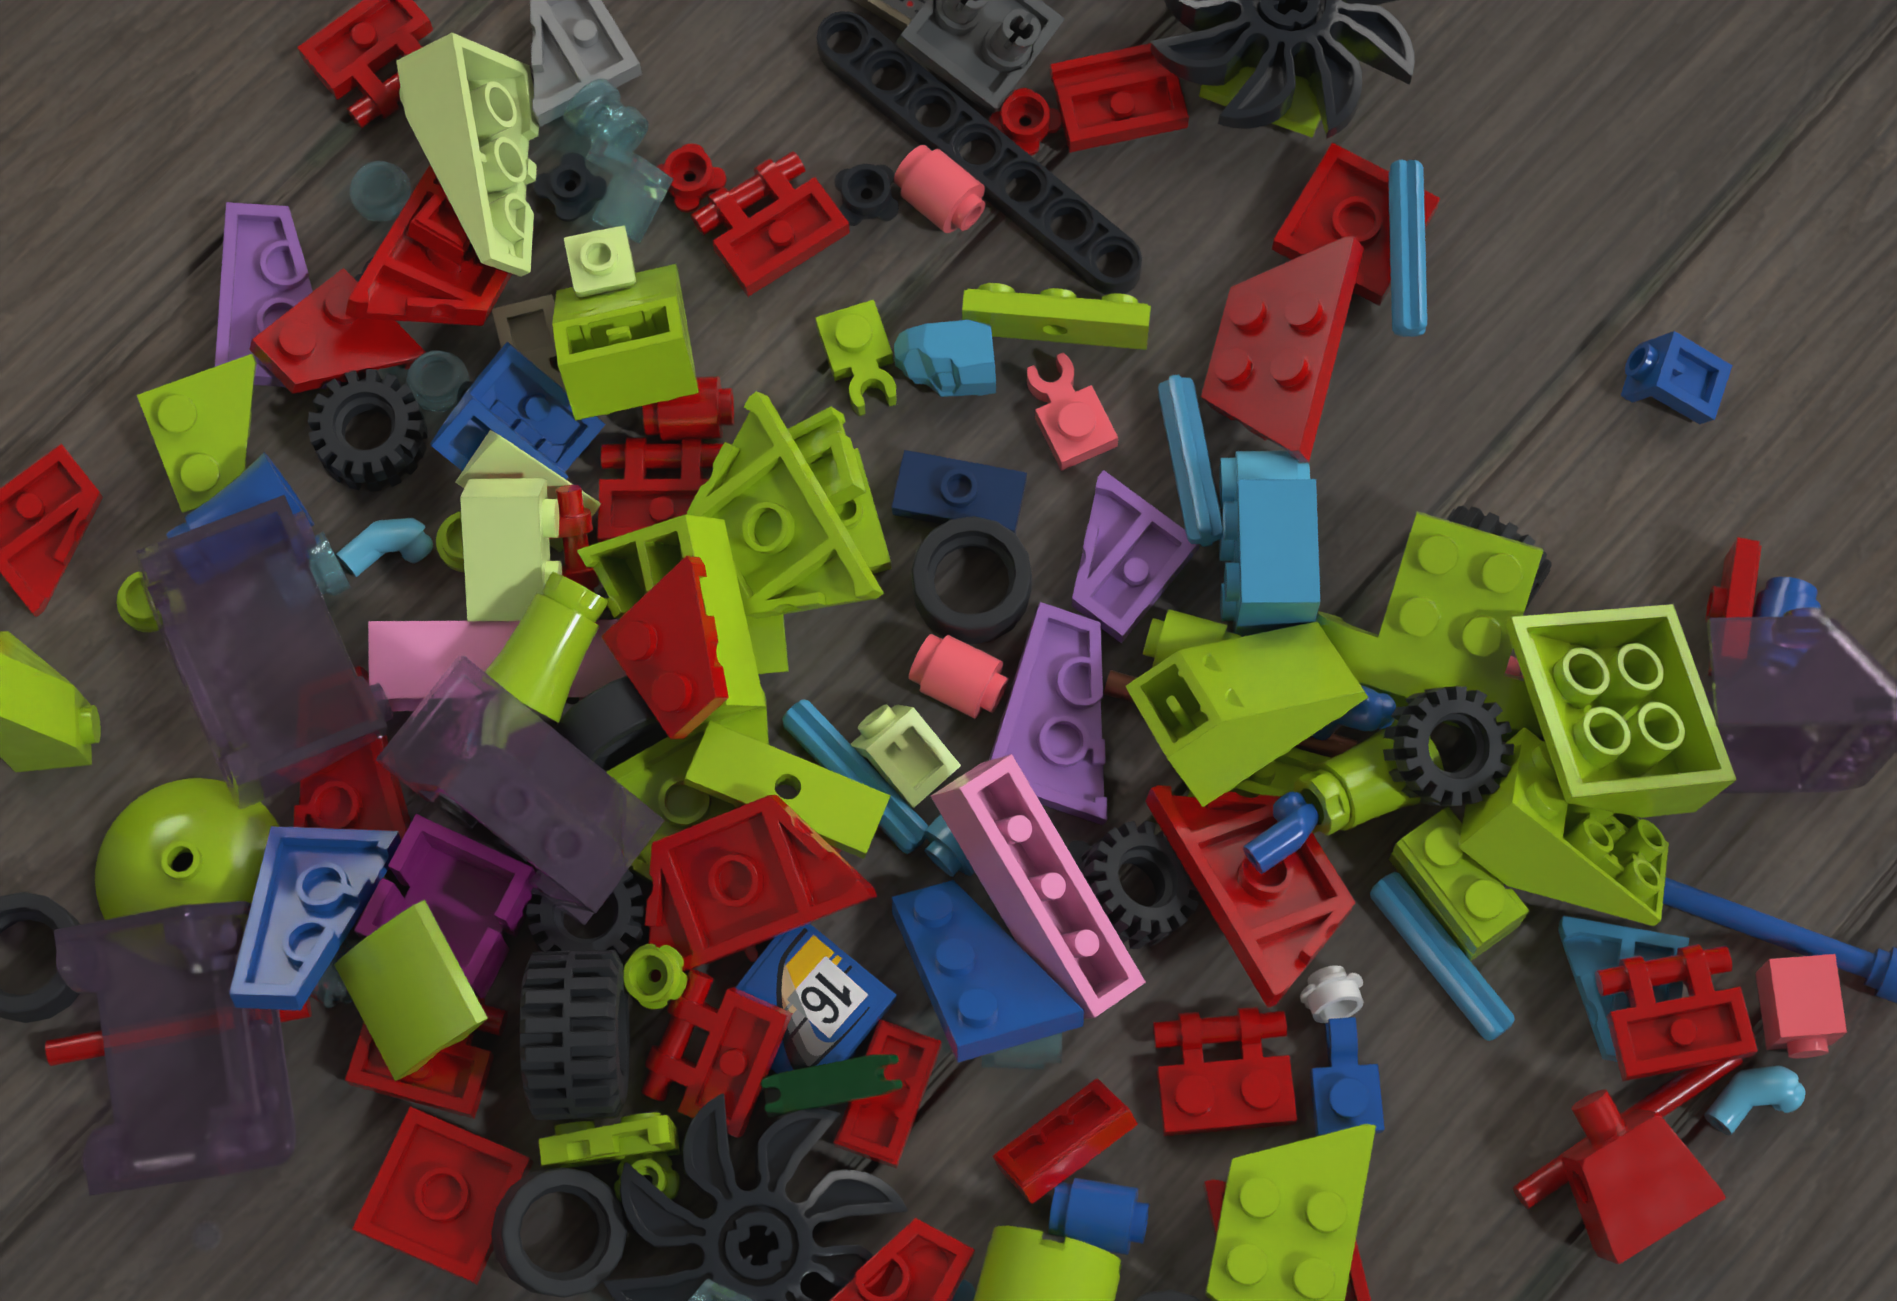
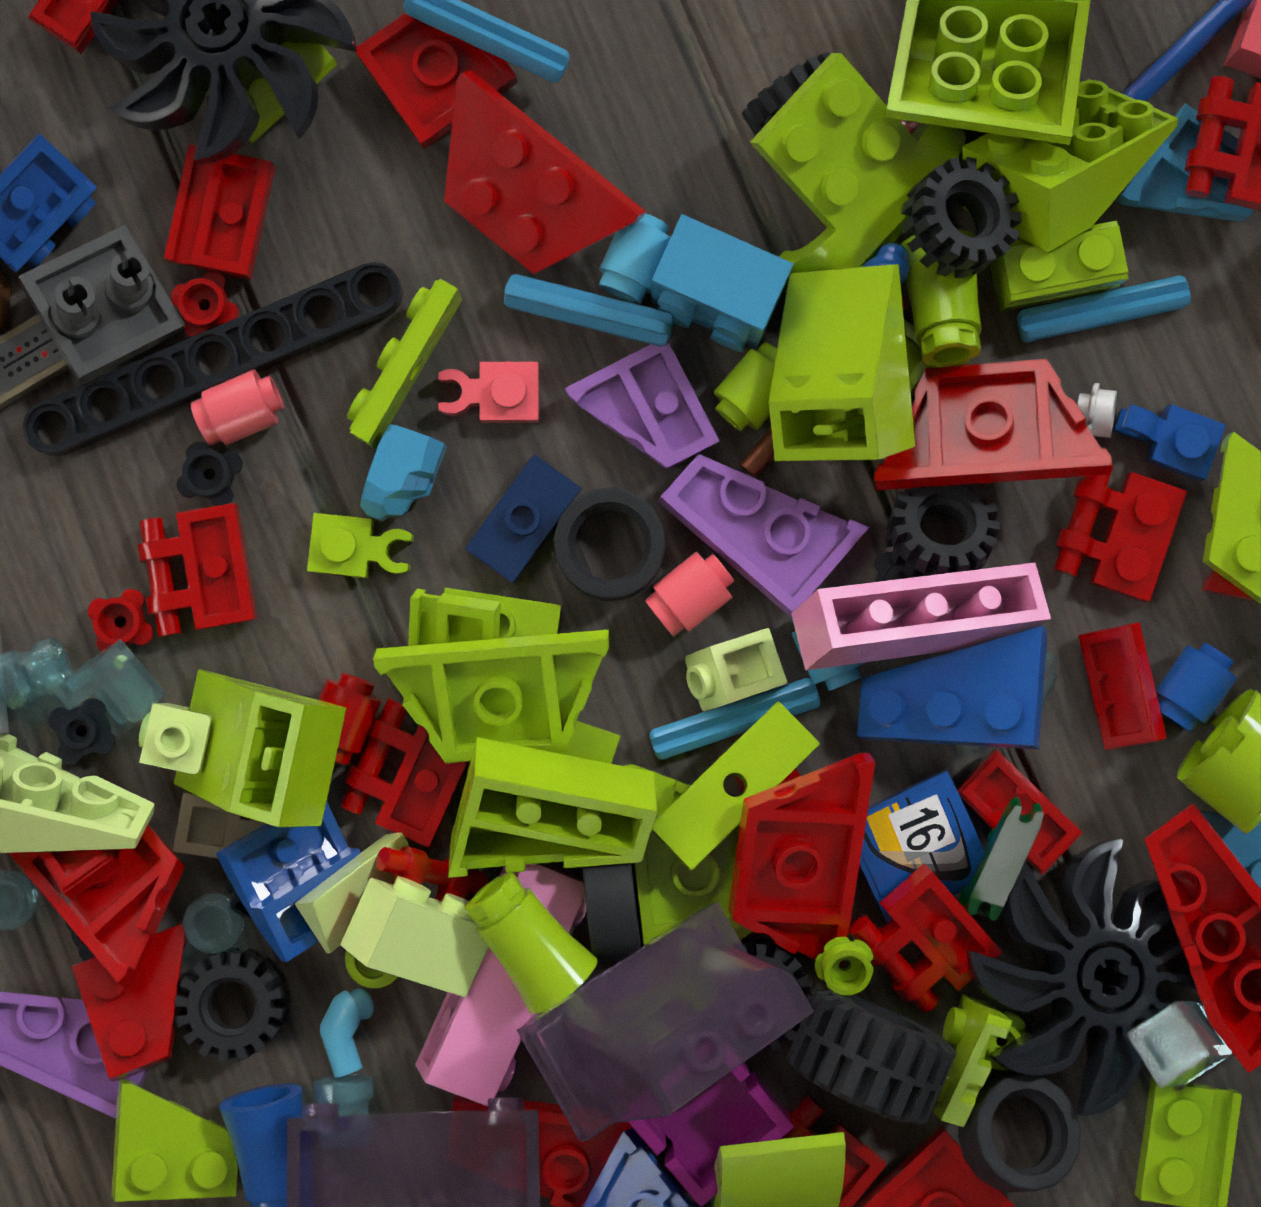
camera: 65 degrees left, 15 degrees up
(671, 650) = (588, 837): red wing -> none
(1294, 825) = (970, 384): blue arm -> none

